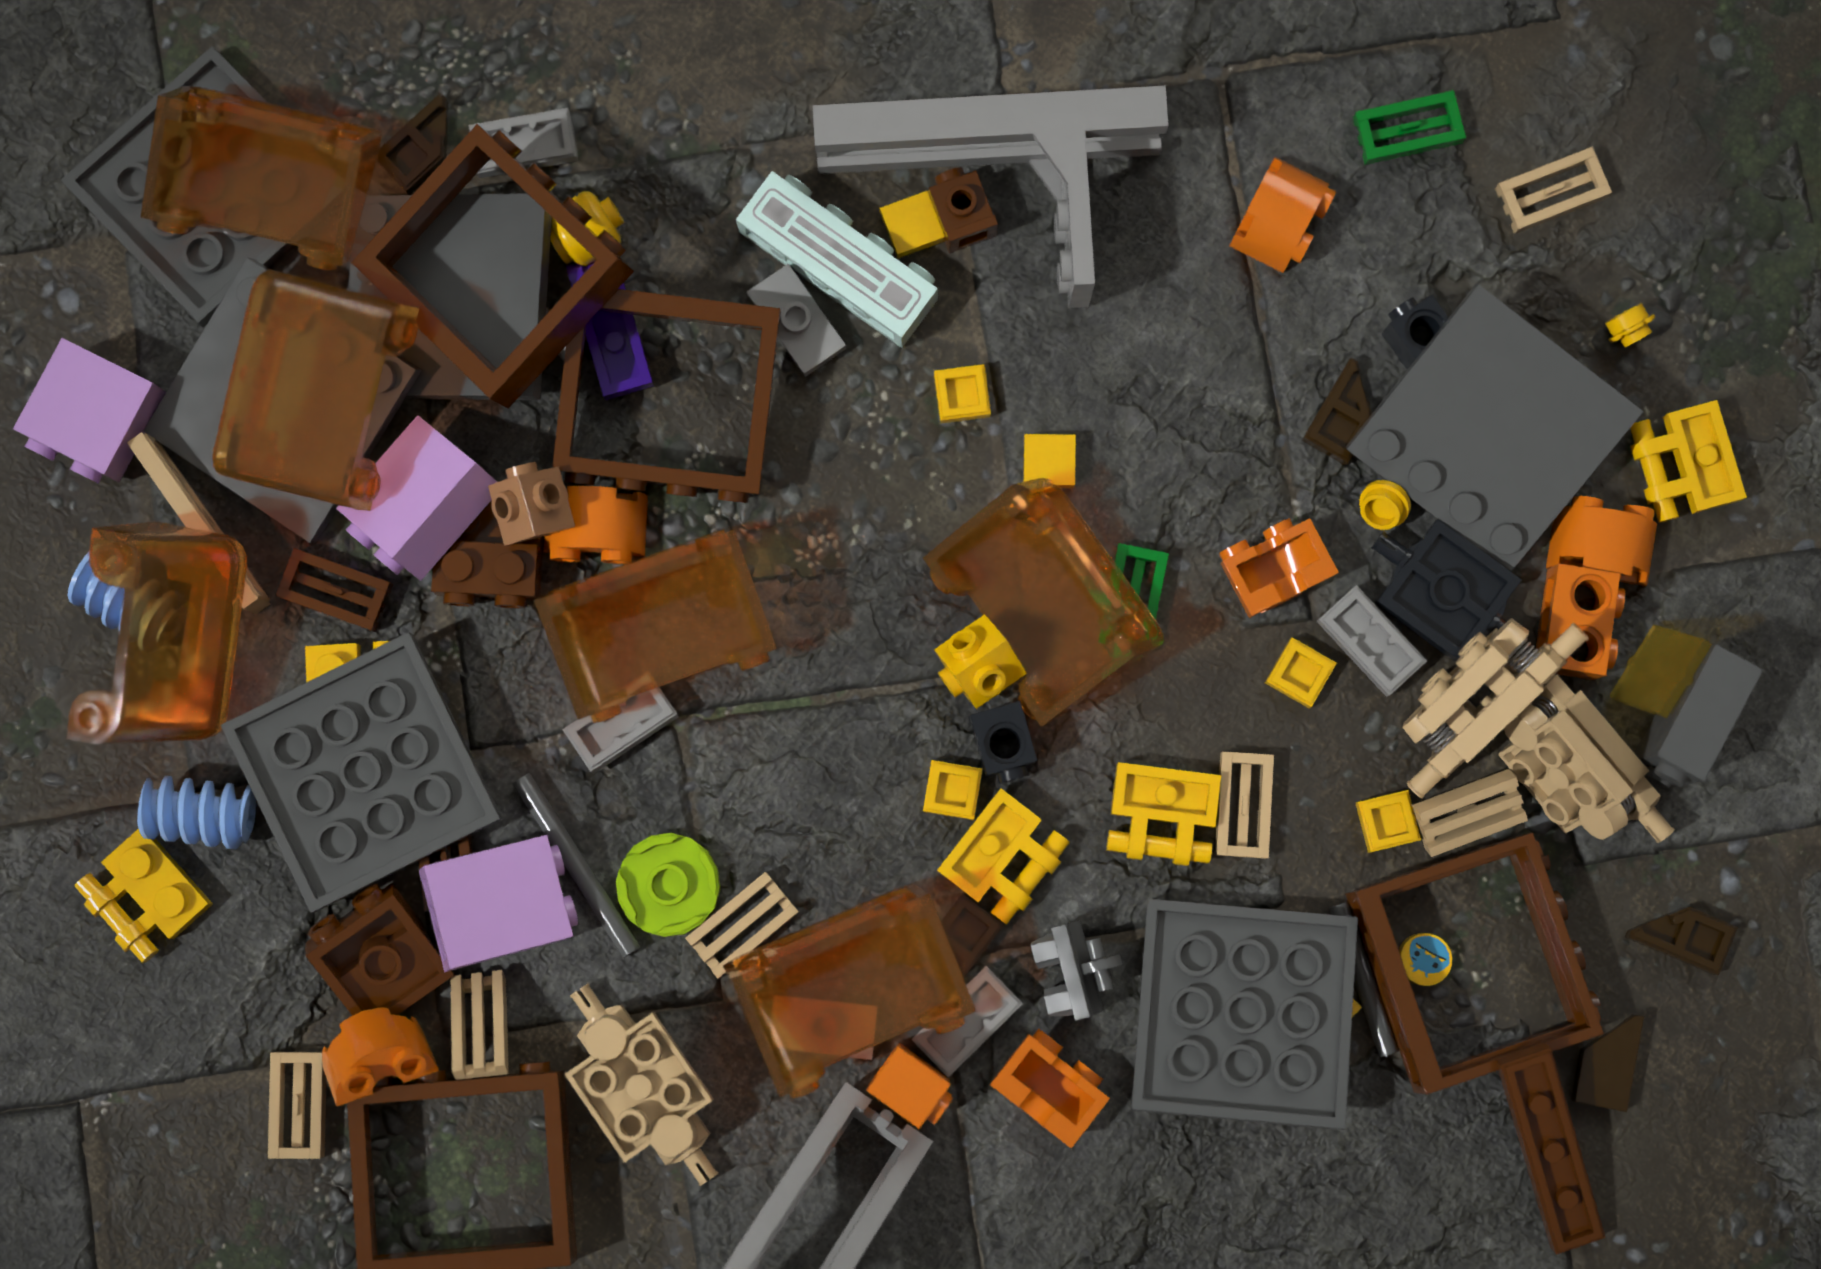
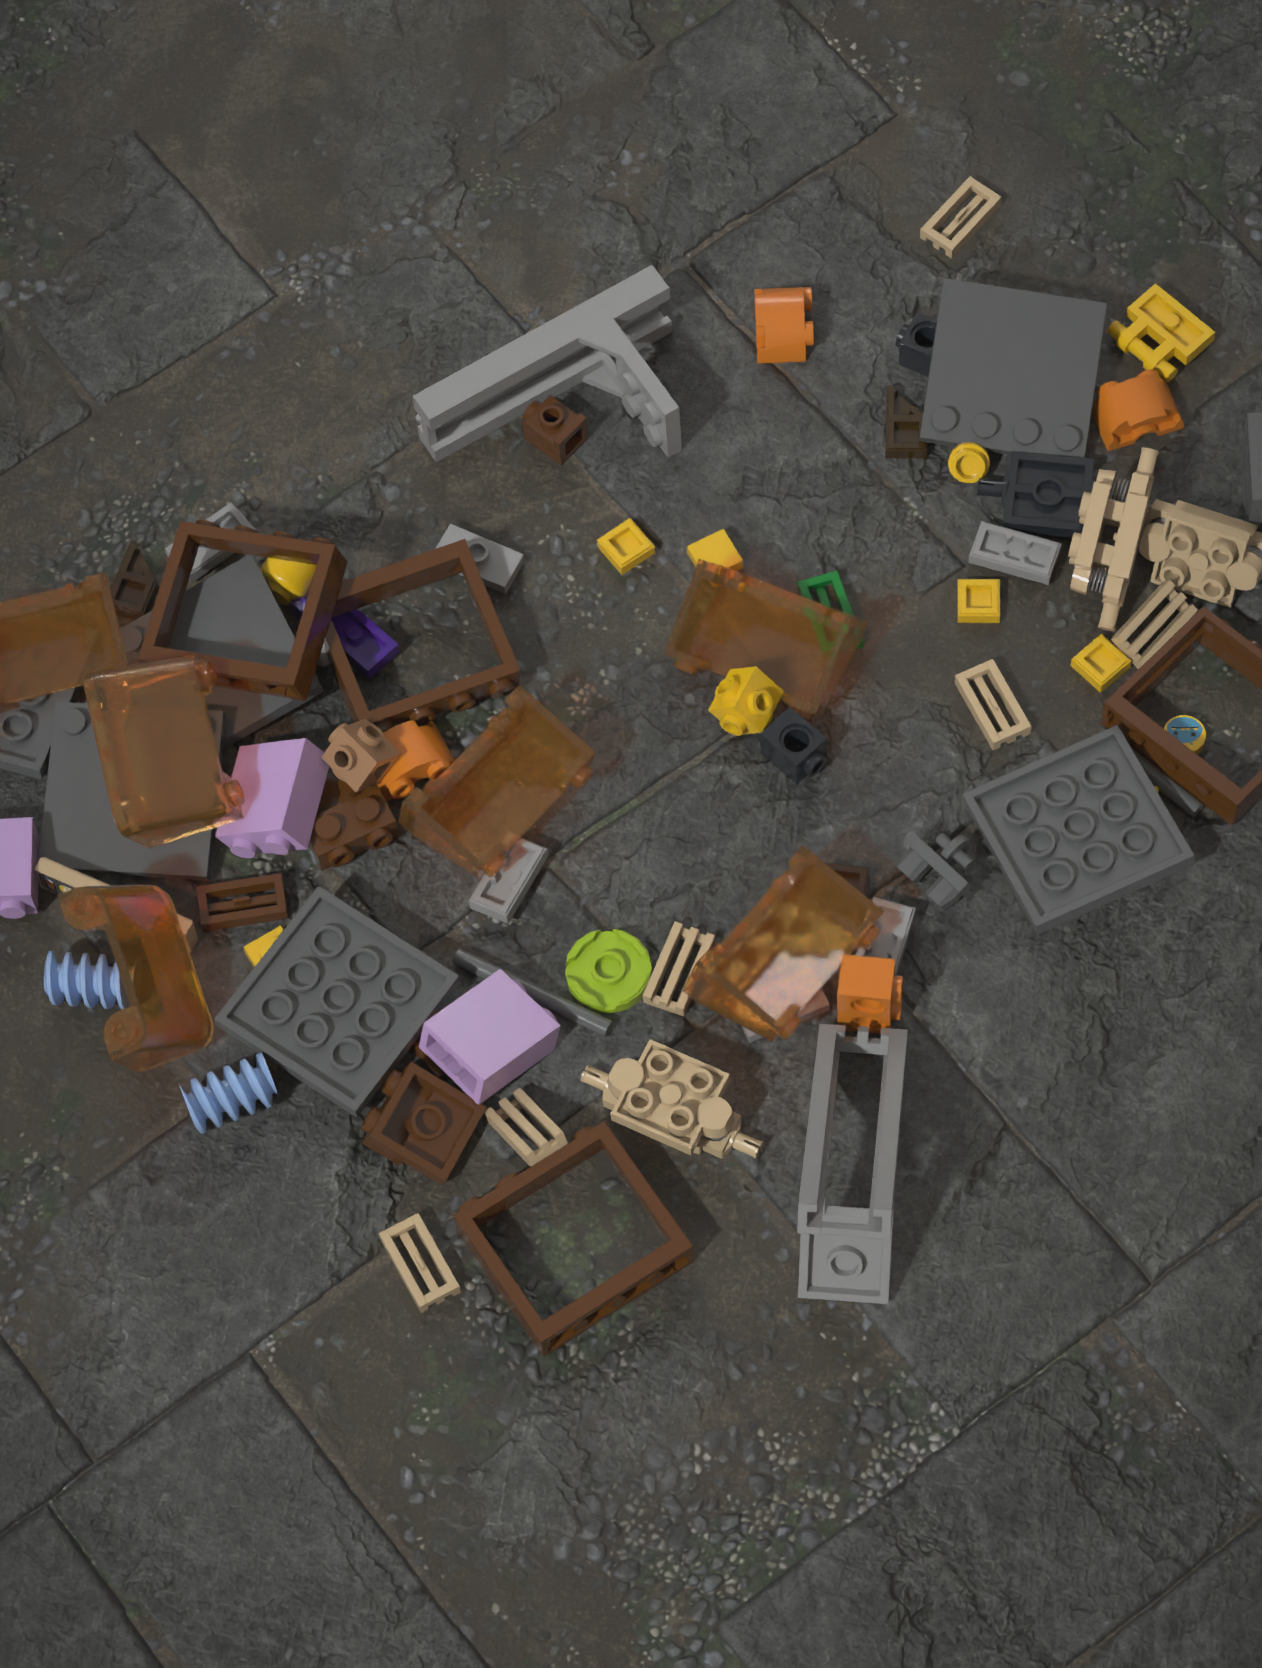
camera: 25 degrees left, 20 degrees down
(157, 886) = (219, 1167): yellow plate -> none
(375, 1047) = (453, 1180): orange cylinder -> none
(838, 258) = (484, 501): light aqua brick -> none
(912, 224) = (524, 457): yellow tile -> none
(952, 790) = (777, 802): yellow tile -> none
(991, 845) = (828, 817): yellow plate -> none
(1049, 1089) = (969, 954): orange cylinder -> none
(1167, 797) = (933, 724): yellow plate -> none
(1278, 568) = (919, 535): orange cylinder -> none
(1368, 138) = (861, 226): green tile -> none
(1561, 610) = (1151, 434): orange brick -> none
(1630, 325) = (1067, 270): yellow plate -> none
(1660, 670) = (1225, 462): clear yellow piece -> none

